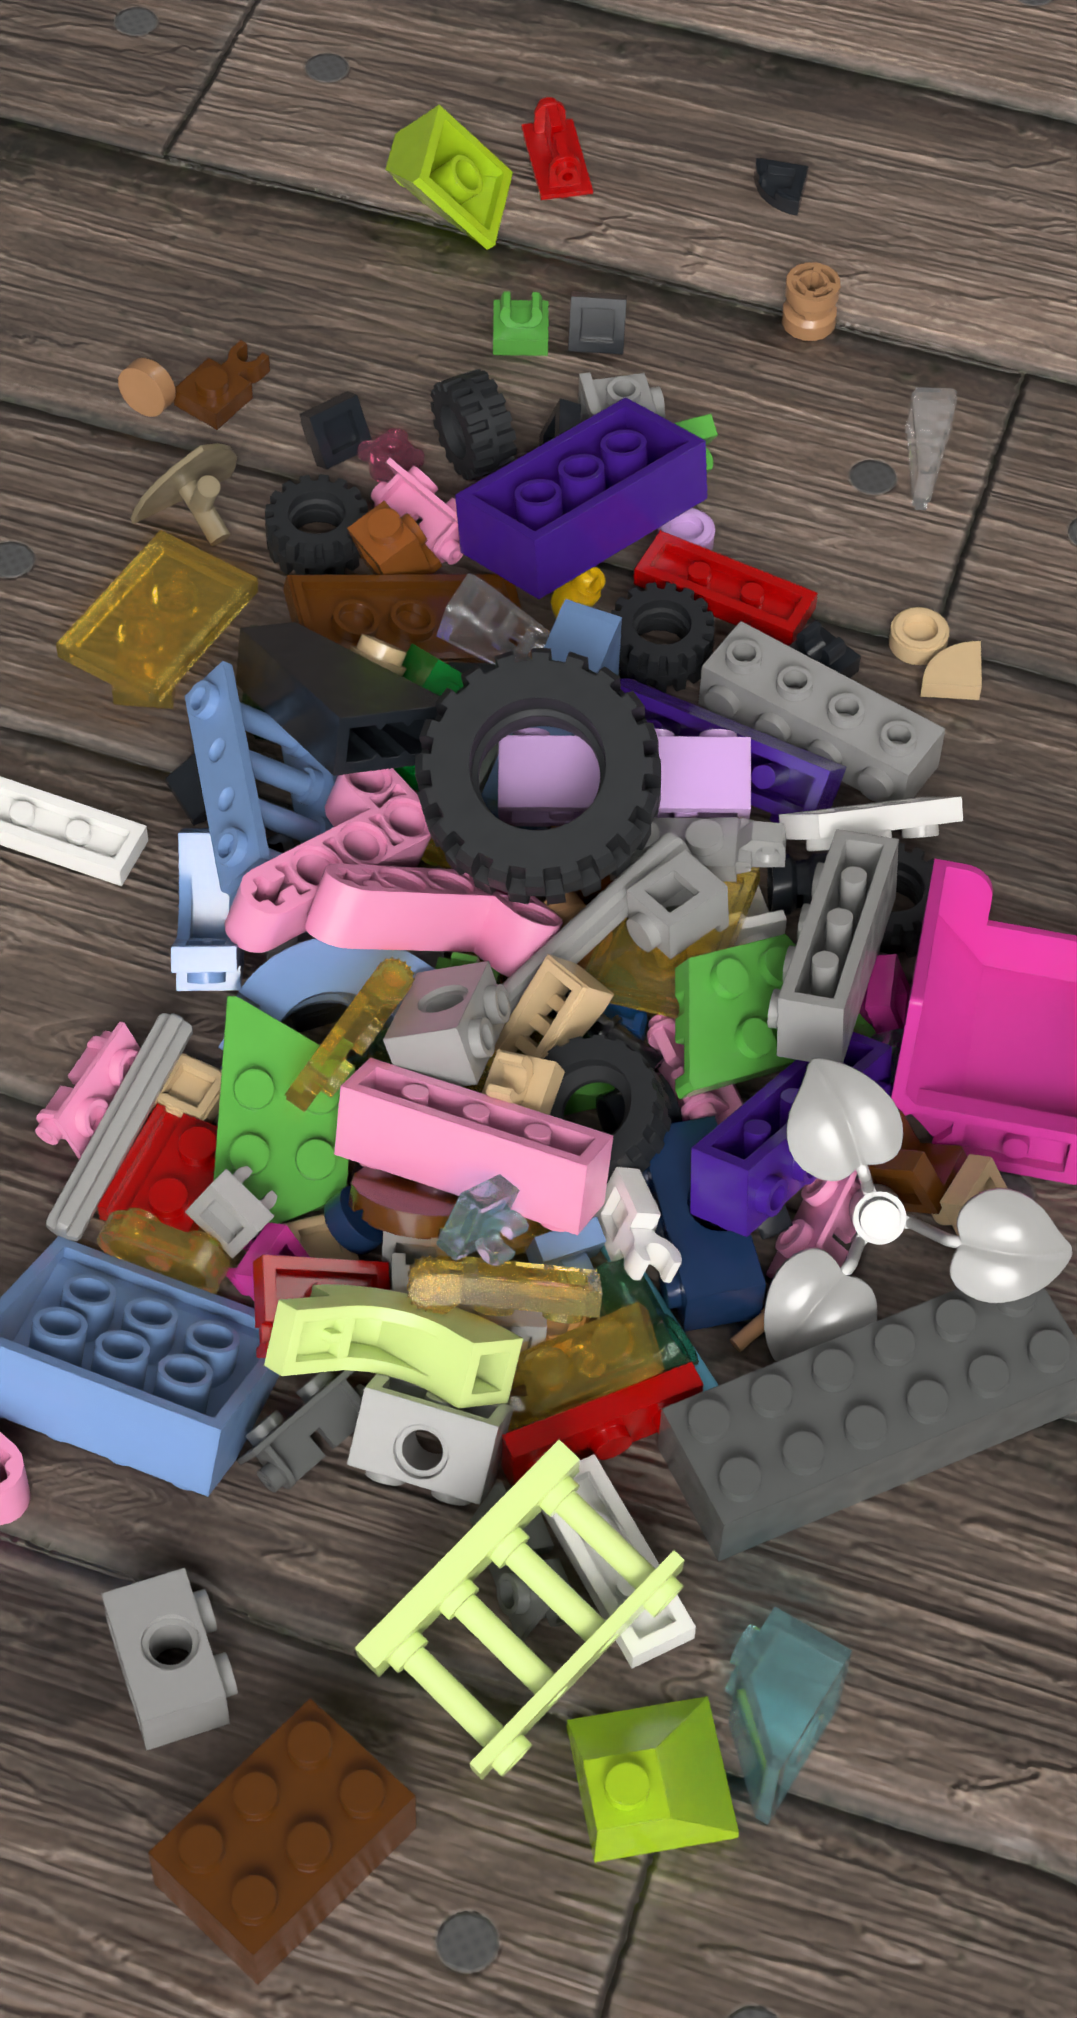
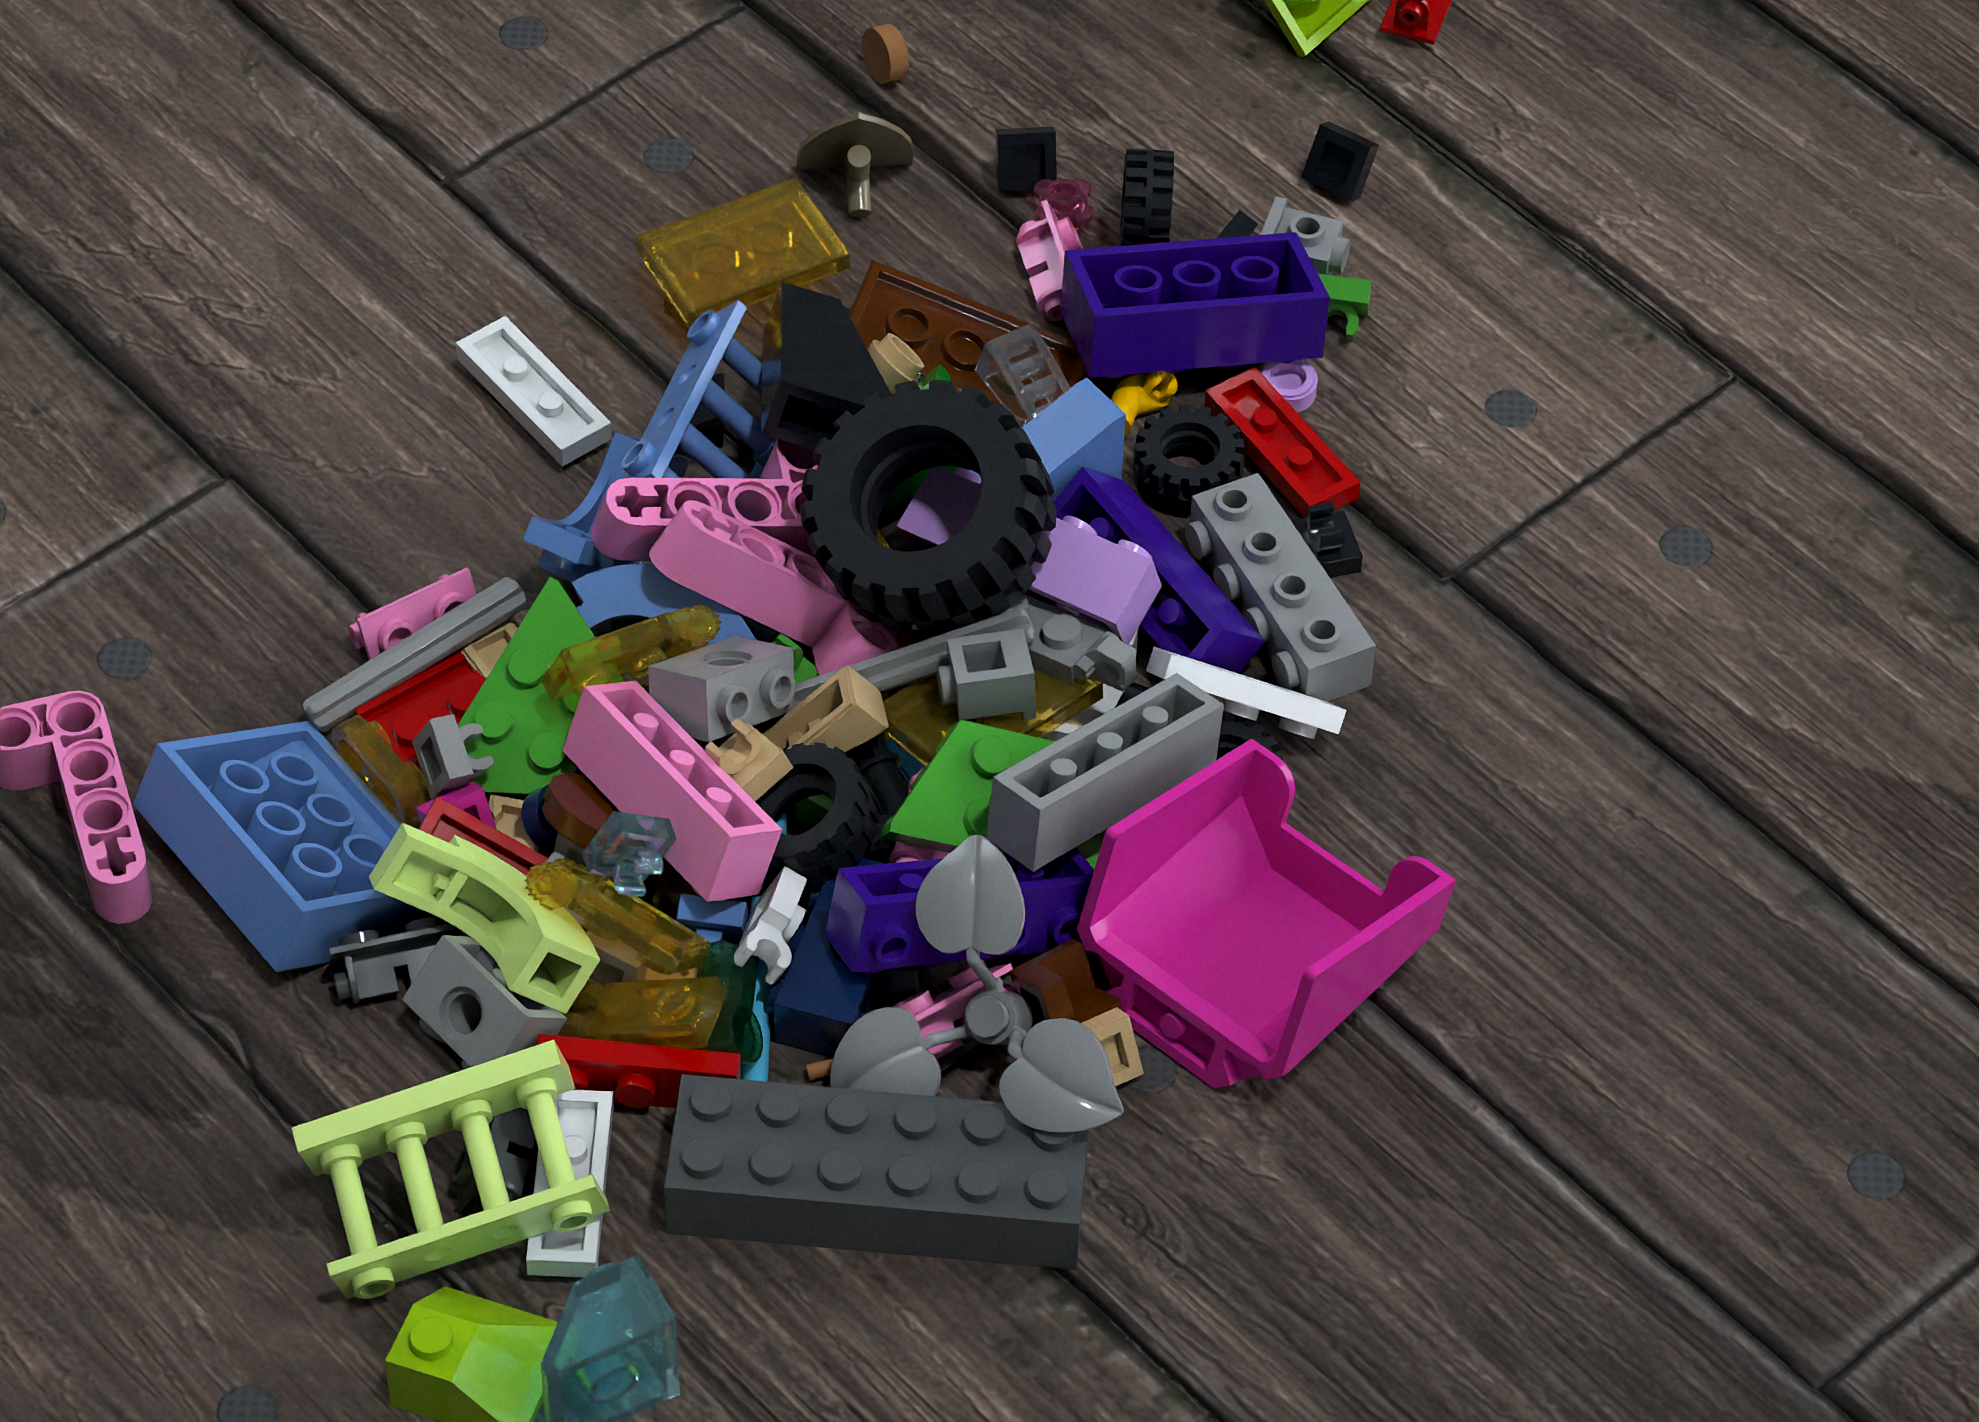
camera: 30 degrees right, 5 degrees down
(176, 1698) = (136, 1105): light grey brick -> none
(219, 391) = (954, 84): reddish brown plate -> none
(283, 1840) = (148, 1253): reddish brown brick -> none
(308, 504) = (954, 213): black tyre -> none
(392, 543) = (997, 276): dark orange brick -> none
(520, 326) = (1272, 137): bright green tile -> none
(781, 184) = (1627, 107): black tile -> none
(810, 301) = (1561, 223): medium nougat wheel -> none
(918, 635) = (1437, 564): tan tile -> none
(927, 434) = (1580, 391): clear slope -> none
(954, 673) = (1444, 609): tan tile -> none

